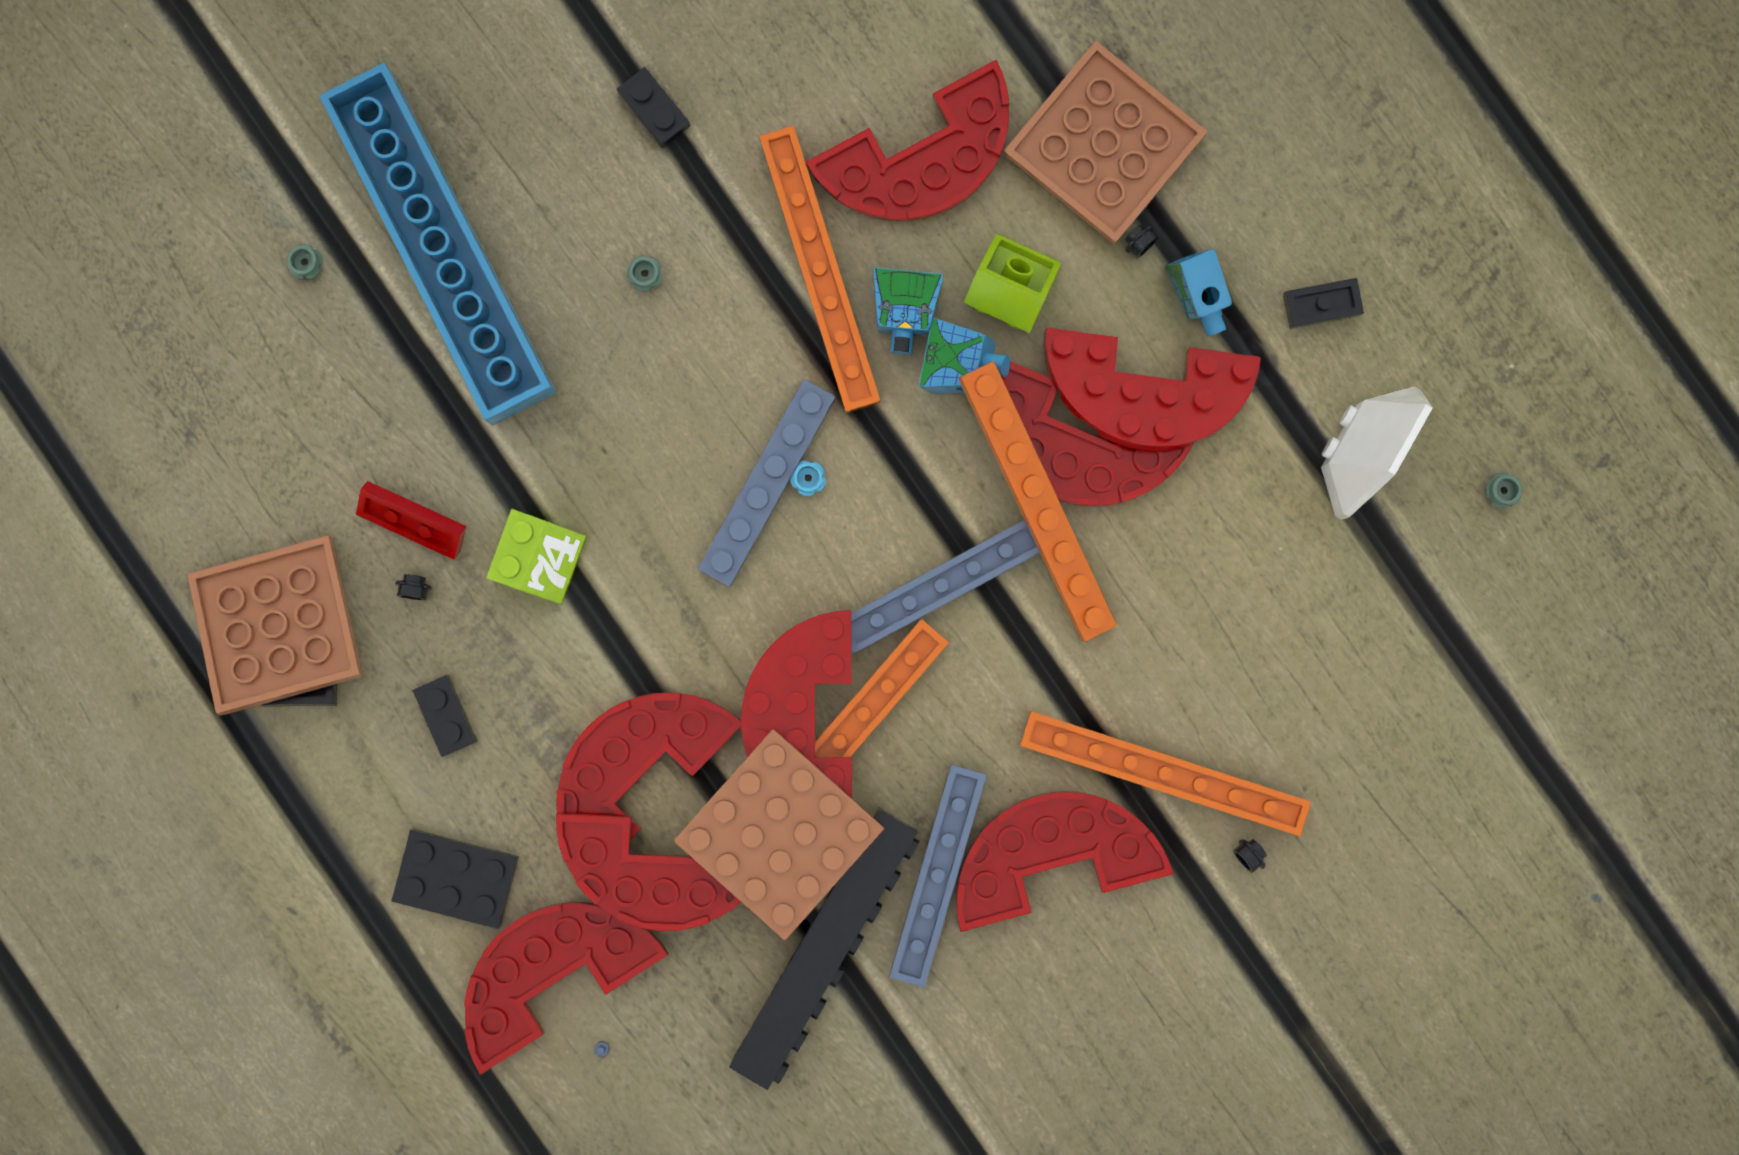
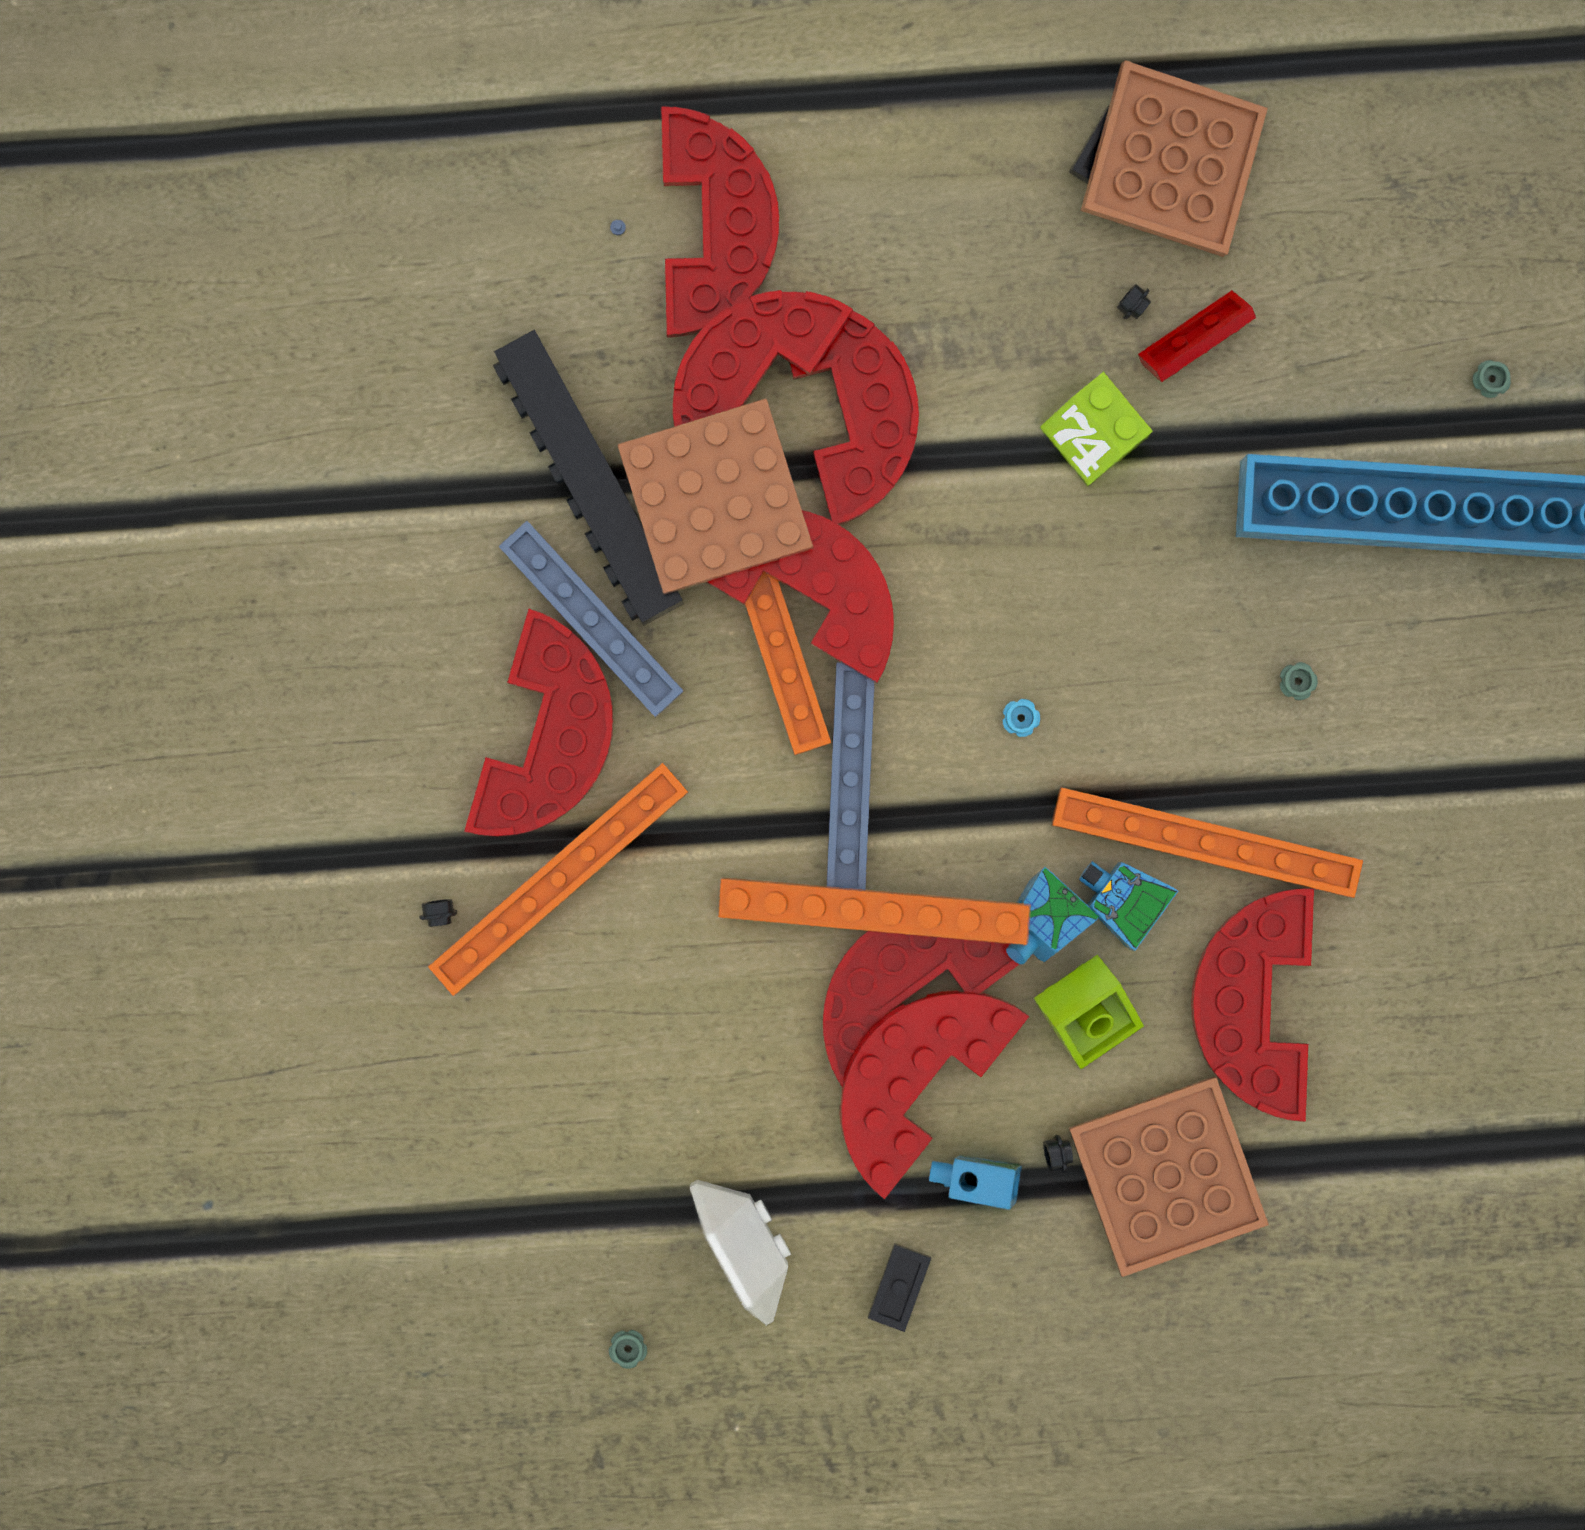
camera: 115 degrees right, 0 degrees up
(444, 715) = (1001, 263): black plate -> none
(455, 878) = (848, 187): black plate -> none
(653, 107) = (1447, 780): black plate -> none
(767, 483) = (1038, 677): sand blue plate -> none

